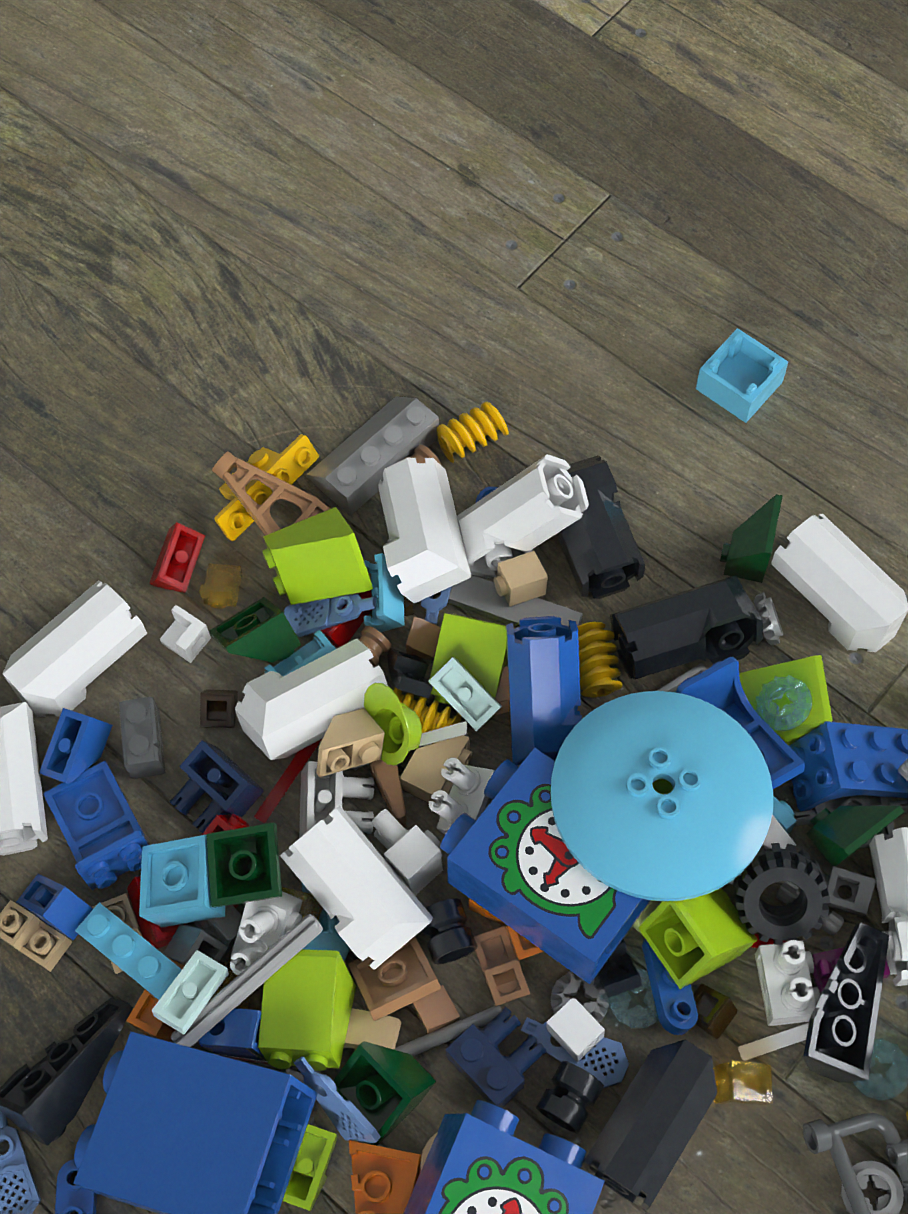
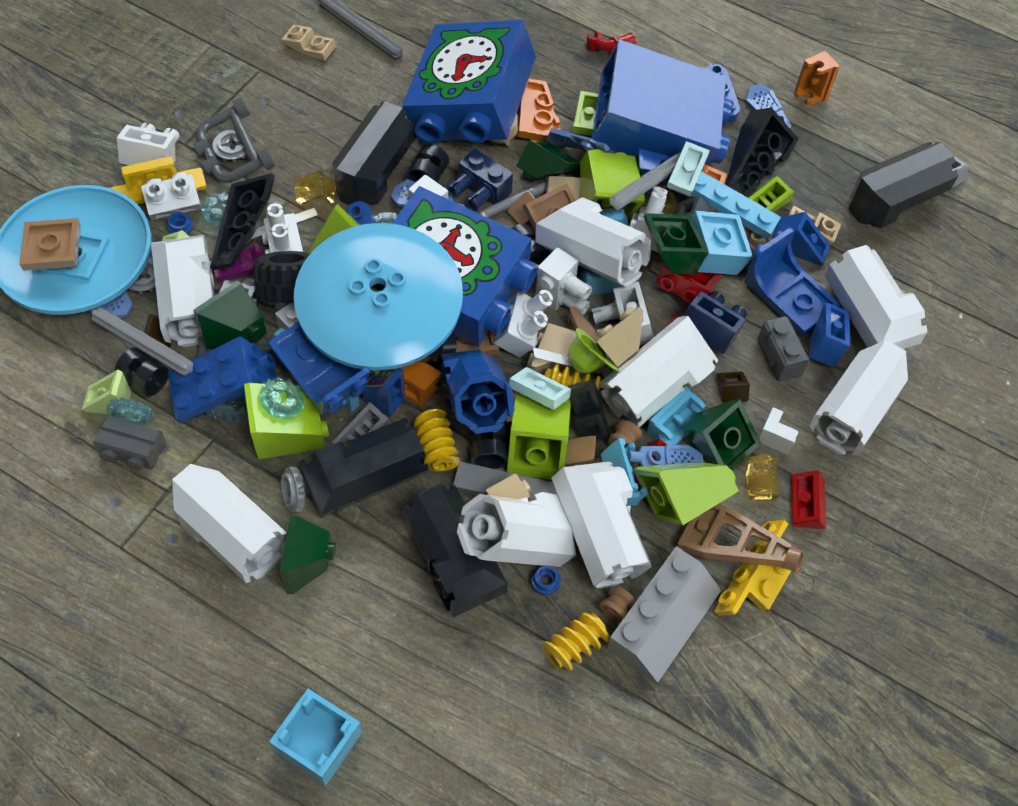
camera: 165 degrees right, 5 degrees down
(59, 982) = (780, 188): none -> lime slope

